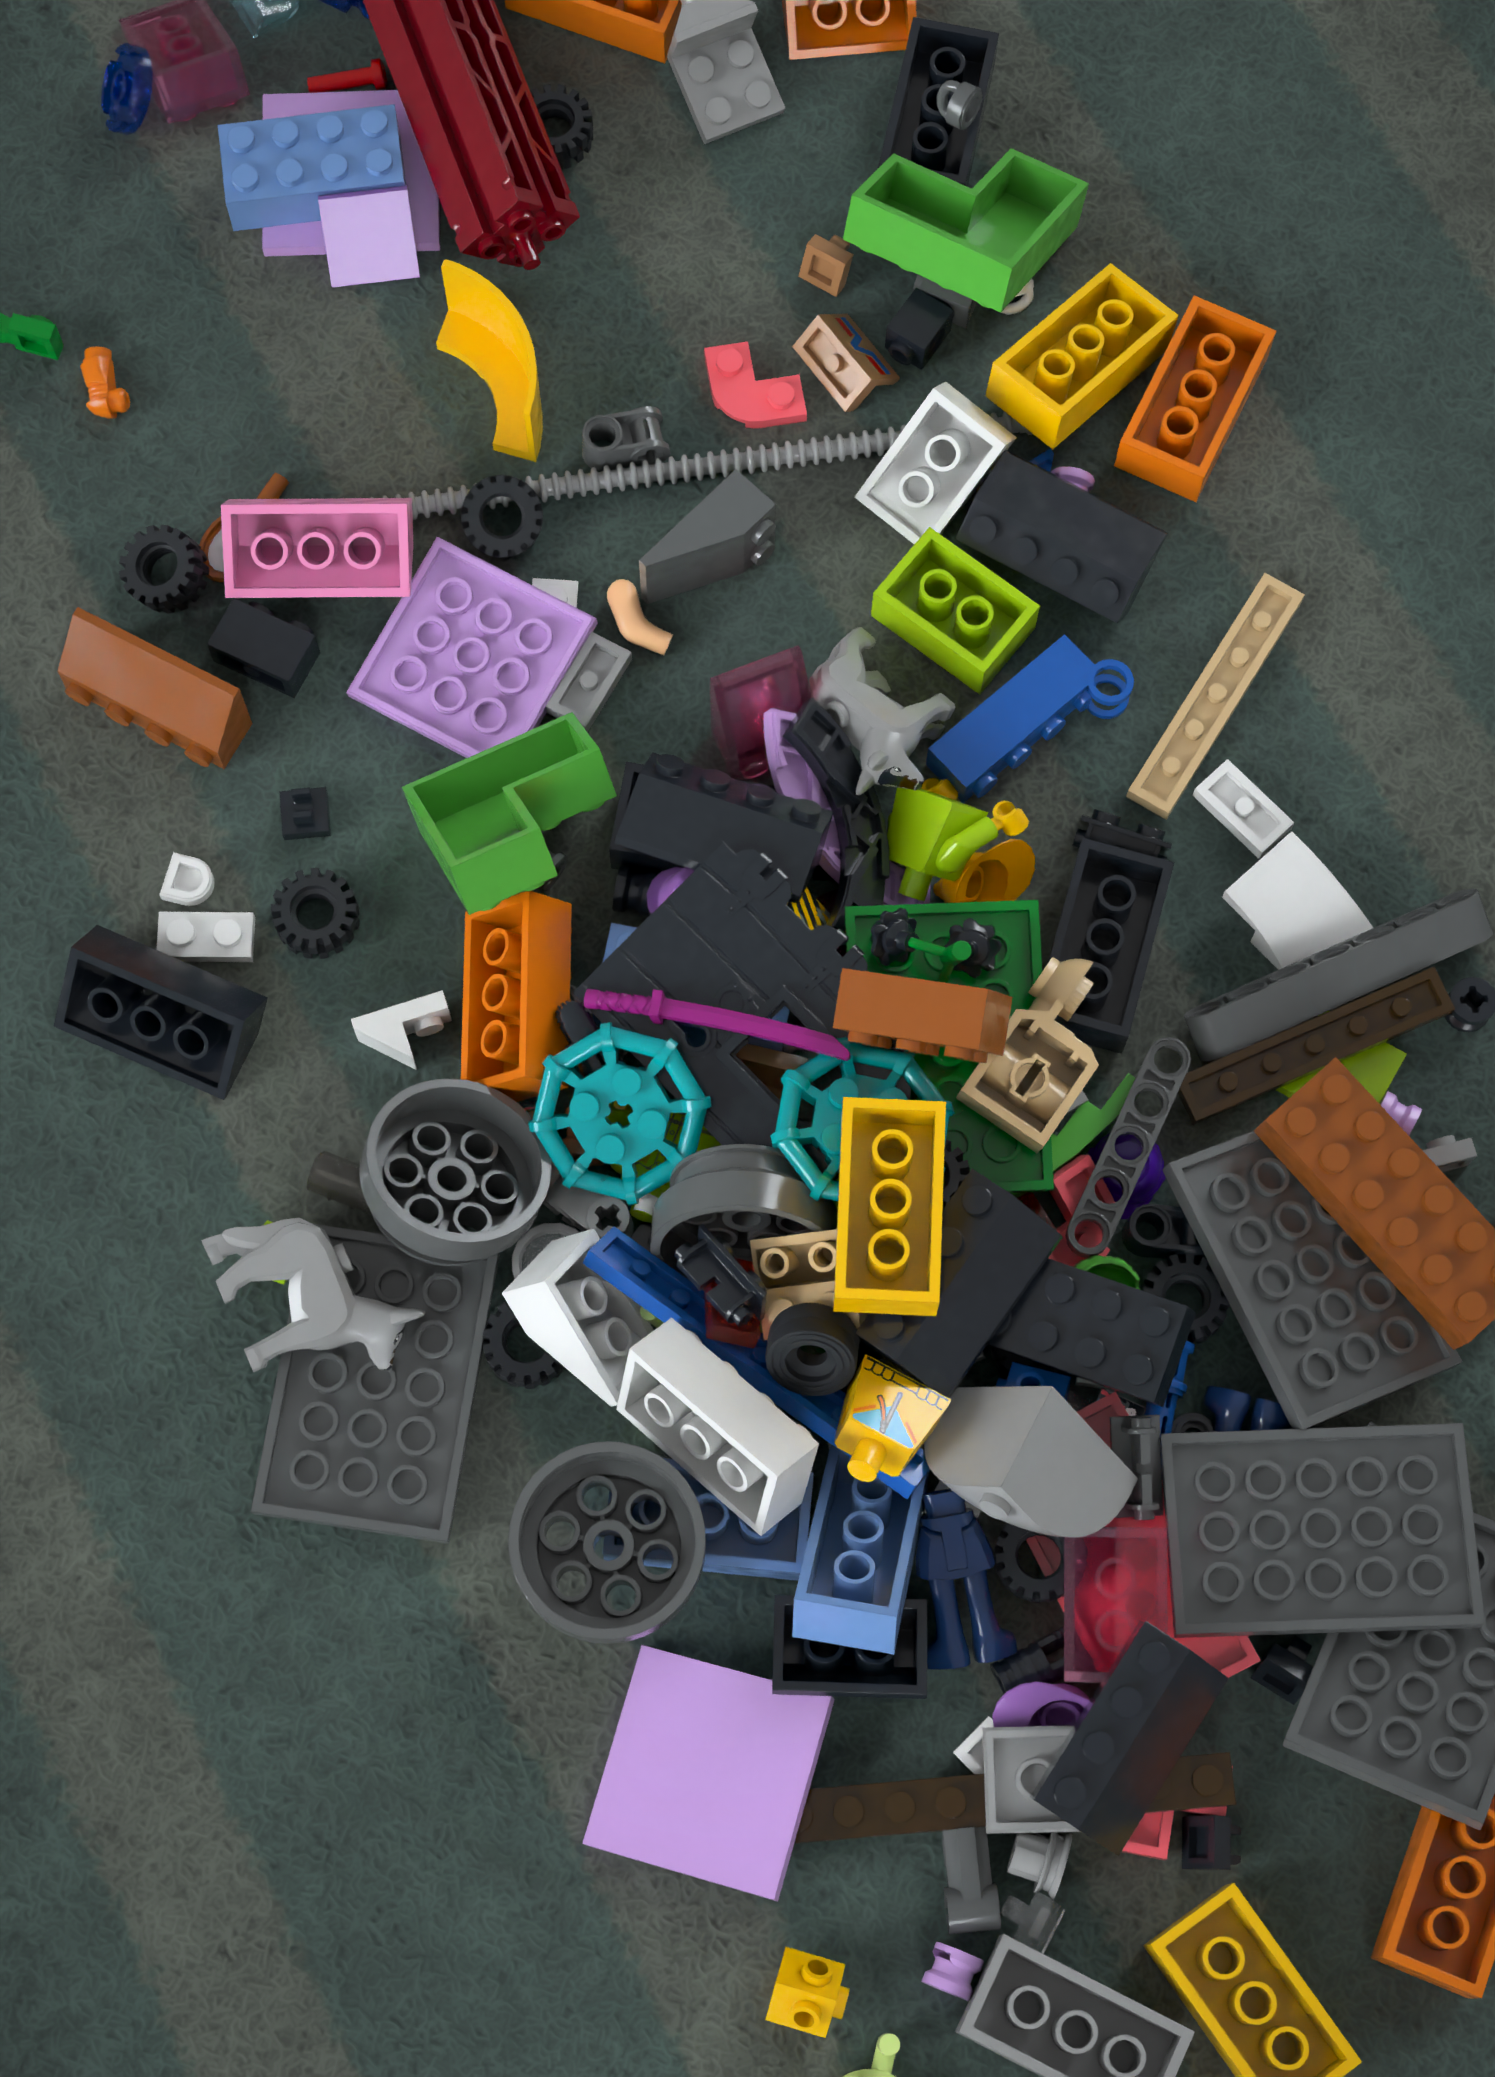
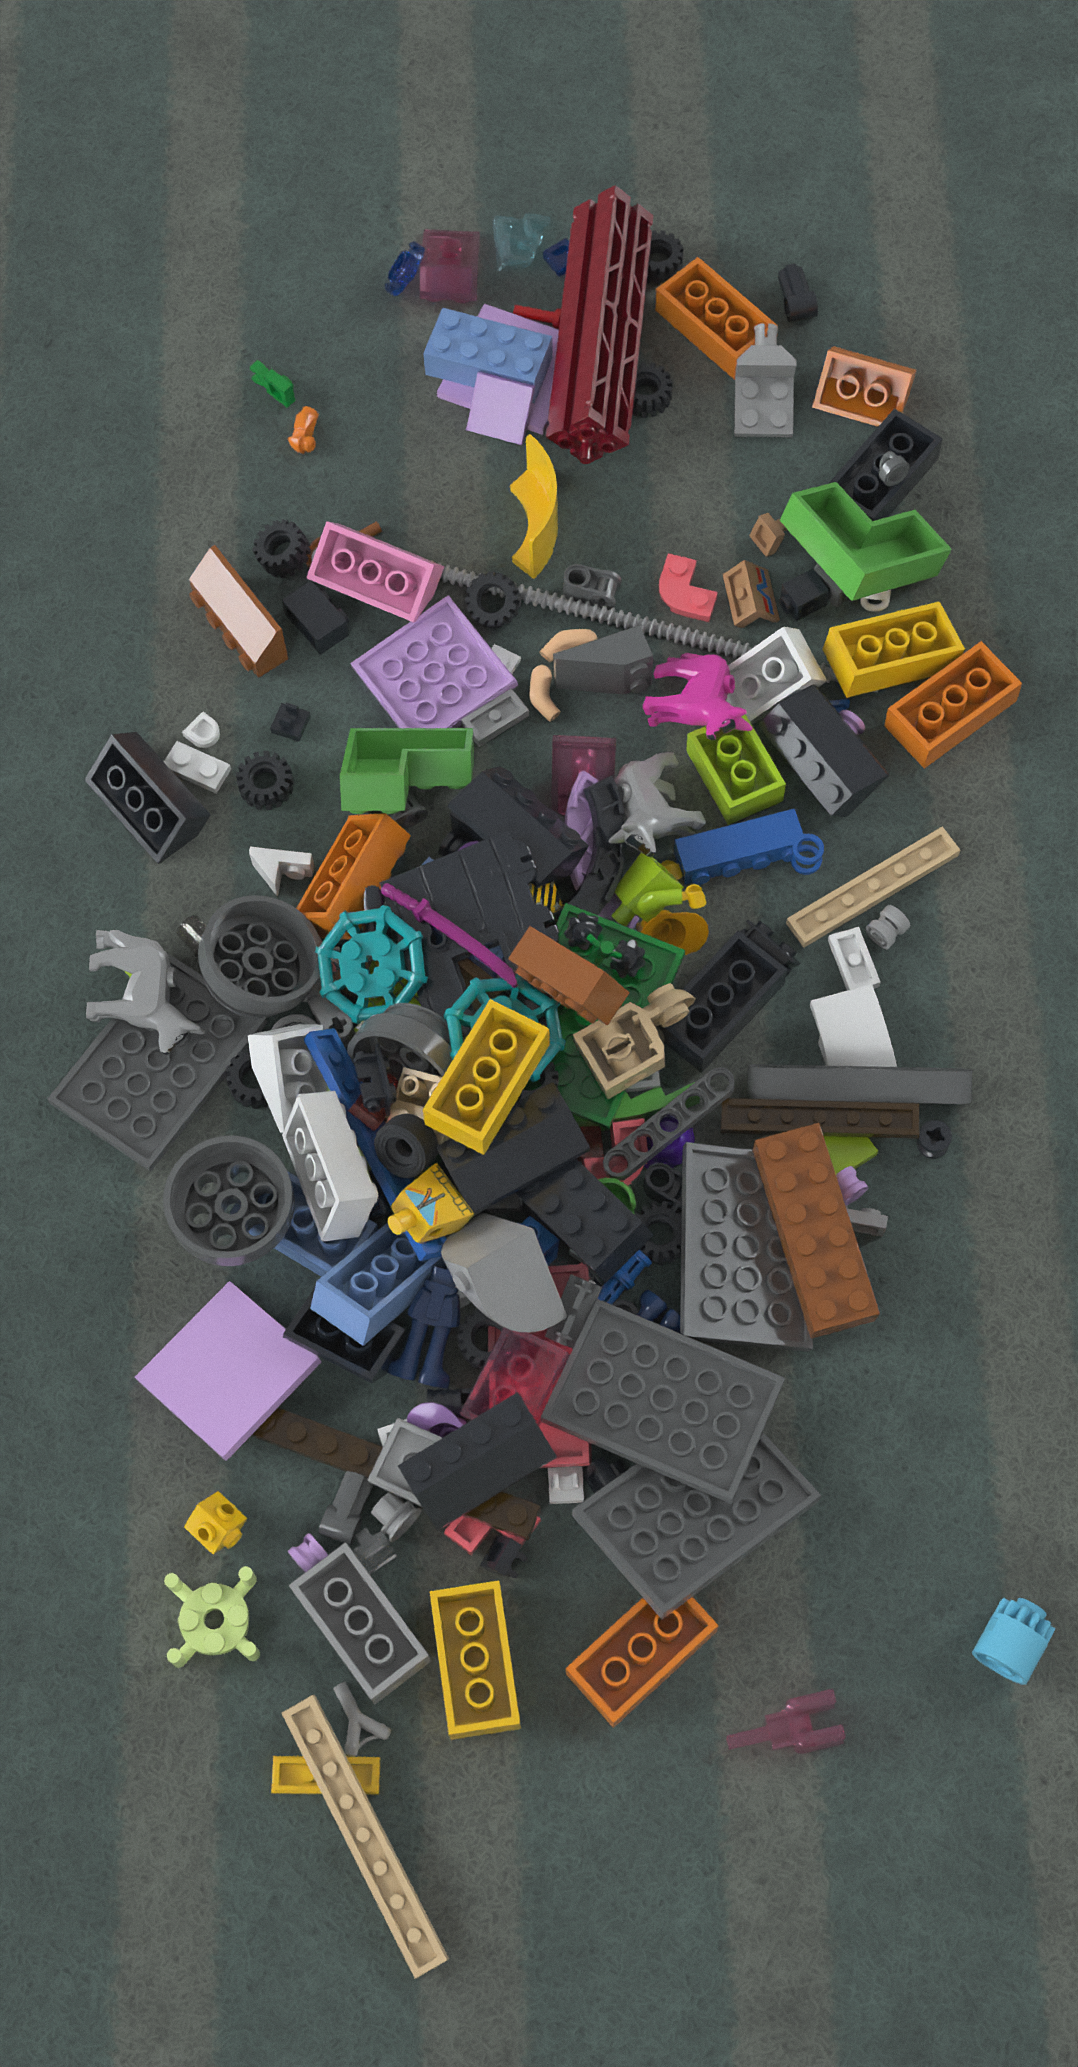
camera: 30 degrees right, 5 degrees down
(632, 530) = (565, 640): none -> light nougat arm
(867, 532) = (702, 699): none -> dark pink animal
(1240, 1704) = (565, 1485): none -> white tile
(1264, 741) = (887, 927): none -> light grey wheel

